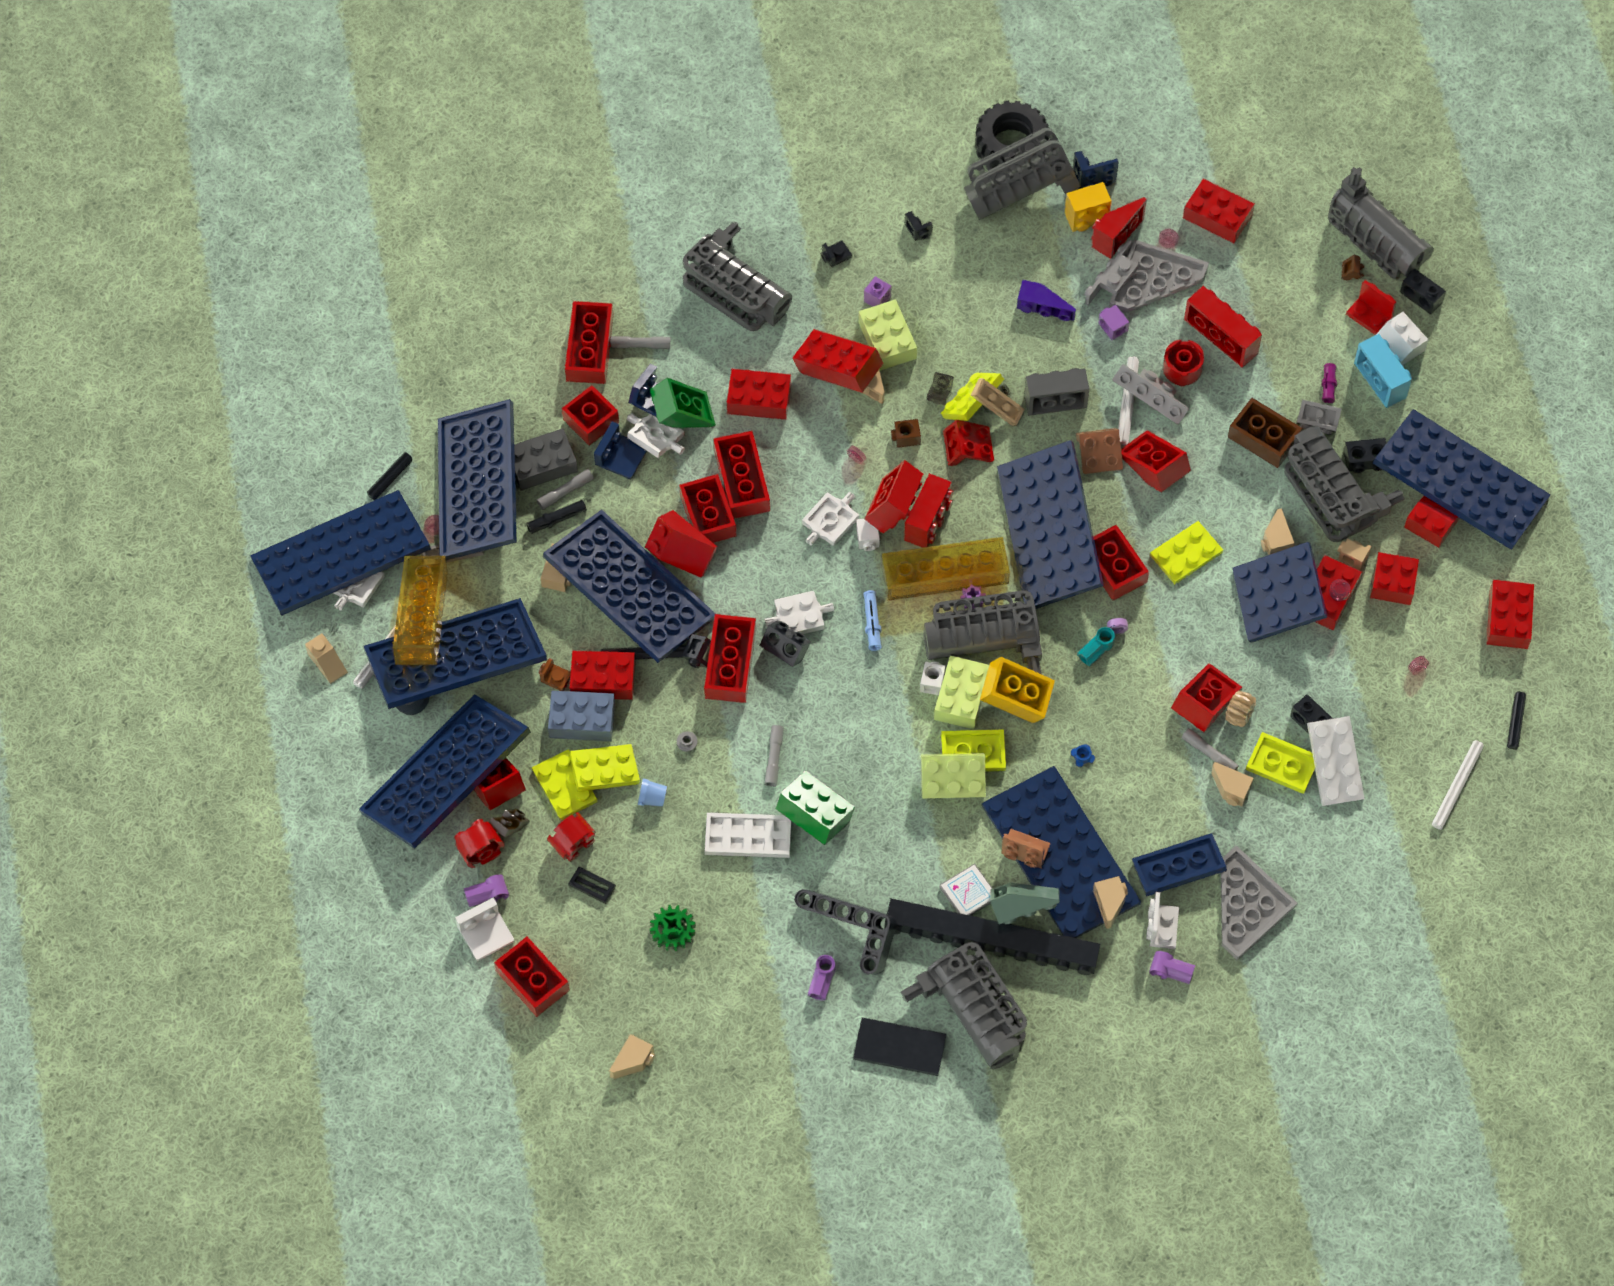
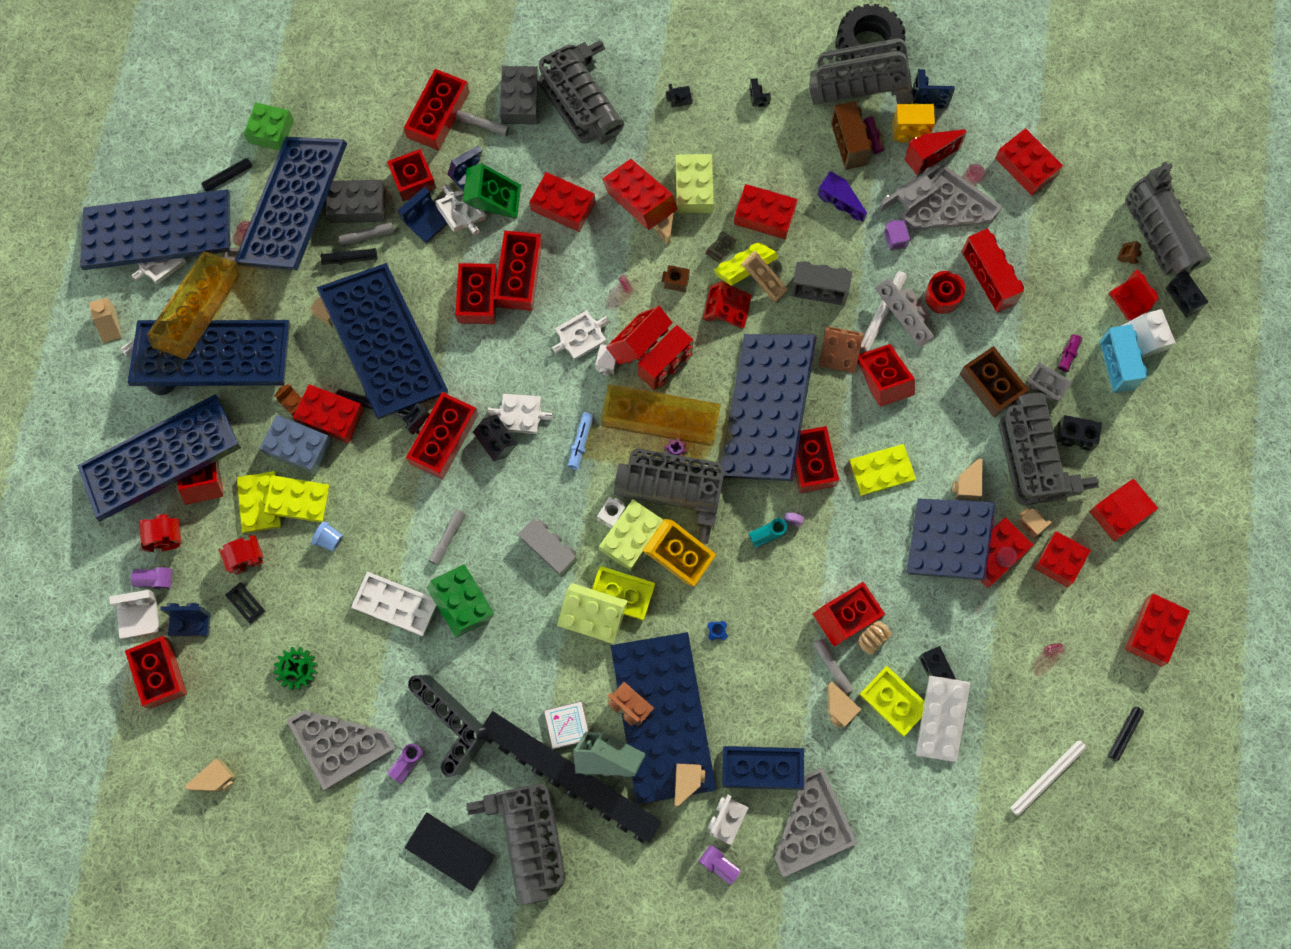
camera: 20 degrees right, 10 degrees up
(416, 413) = (268, 126): none -> bright green brick
(510, 822) = (195, 523): dark brown slope -> none
(541, 916) = (187, 620): none -> dark blue bracket
(669, 302) = (519, 95): none -> dark grey brick
(680, 544) = (439, 316): red slope -> none
(687, 747) = (377, 504): light grey plate -> none
(747, 987) = (337, 746): none -> light grey plate
(877, 292) = (700, 142): medium lavender brick -> none
(881, 730) = (547, 546): none -> light grey brick
(971, 340) = (765, 211): none -> red brick
(1029, 238) = (851, 135): none -> reddish brown brick
(1051, 232) = (874, 135): none -> magenta pin
(1462, 479) = (1159, 485): dark blue plate -> none

